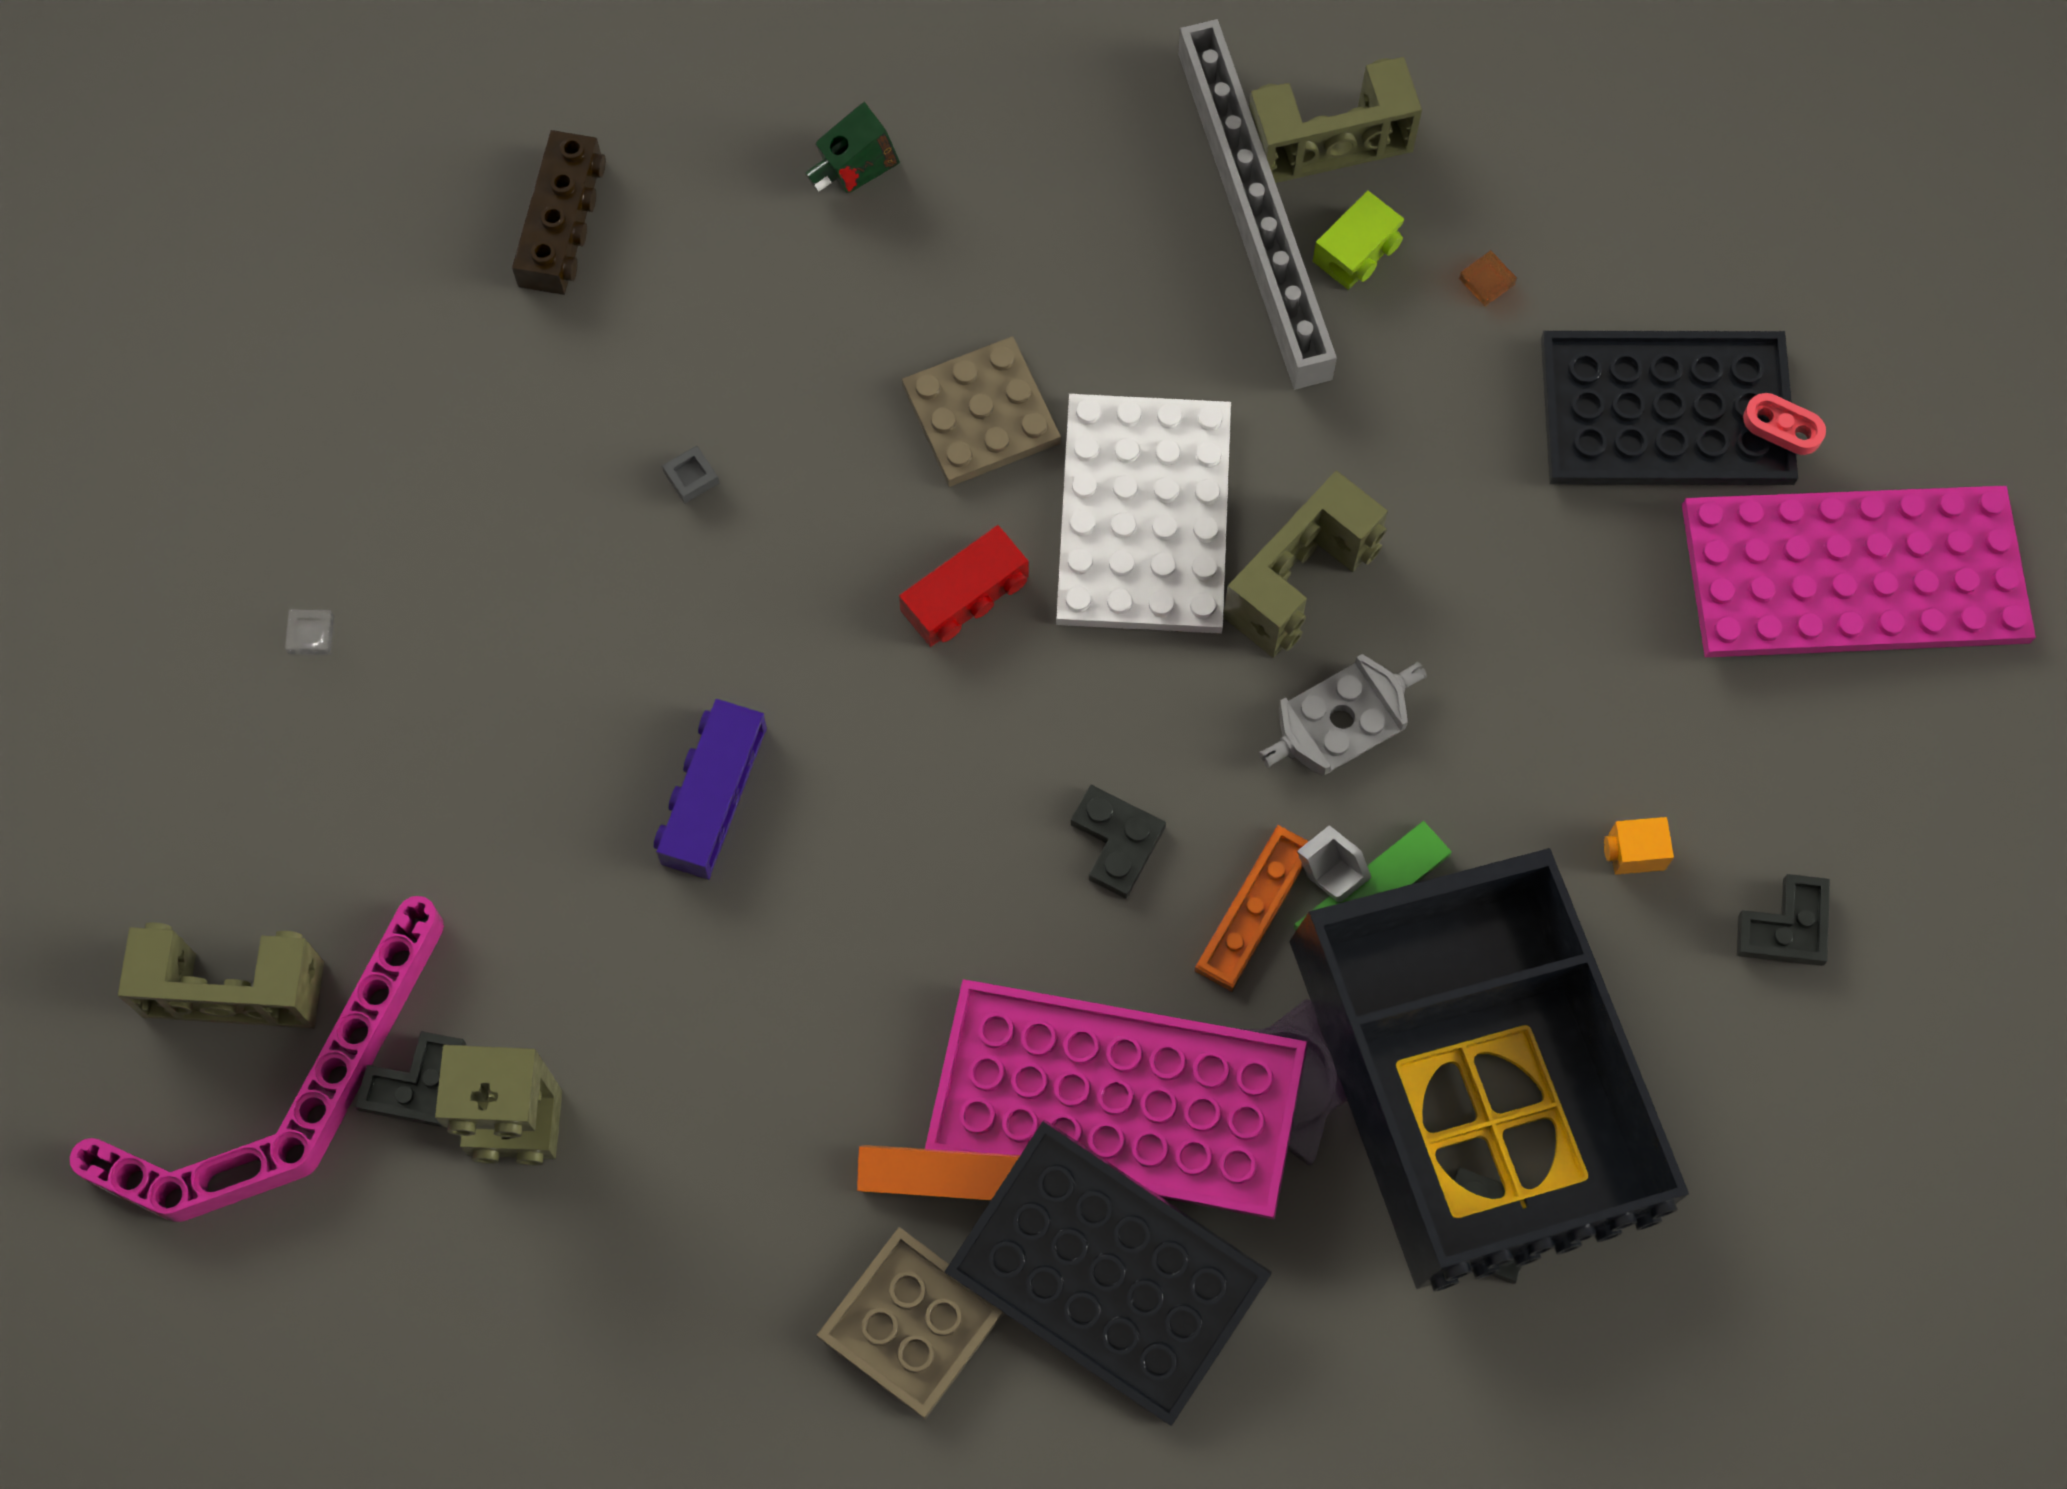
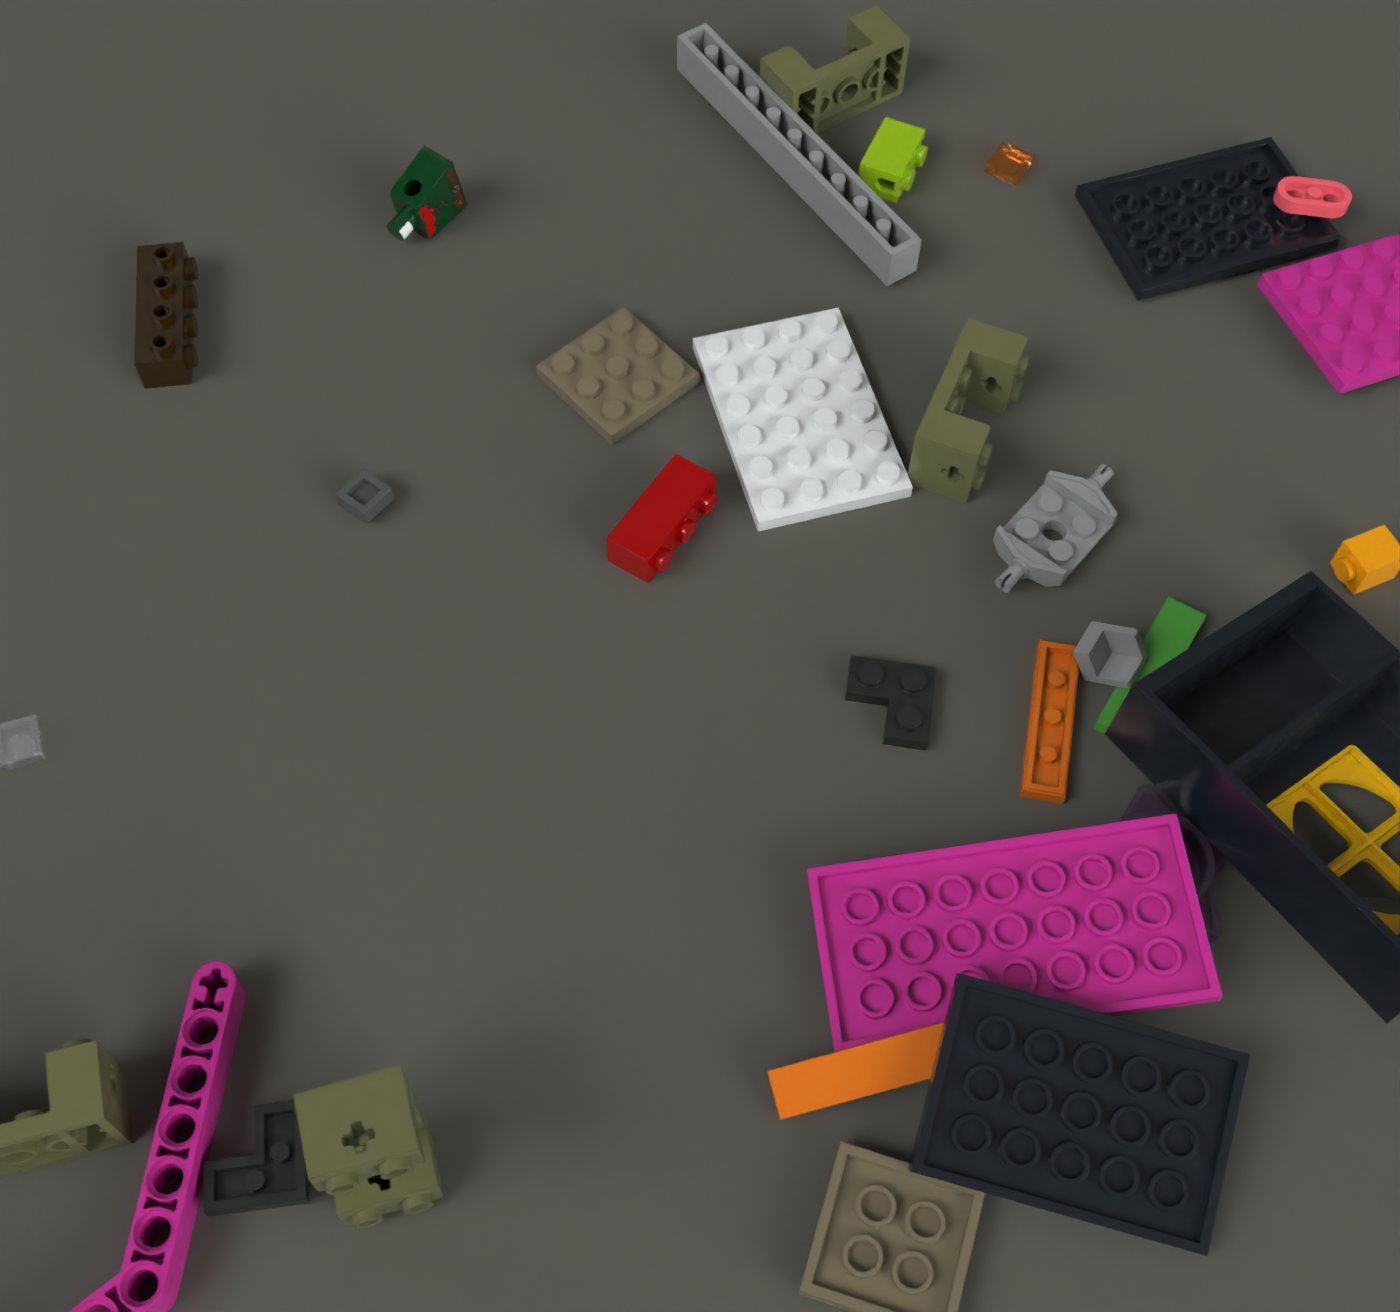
camera: 20 degrees left, 10 degrees down
(710, 789) = (483, 769): dark purple brick -> none

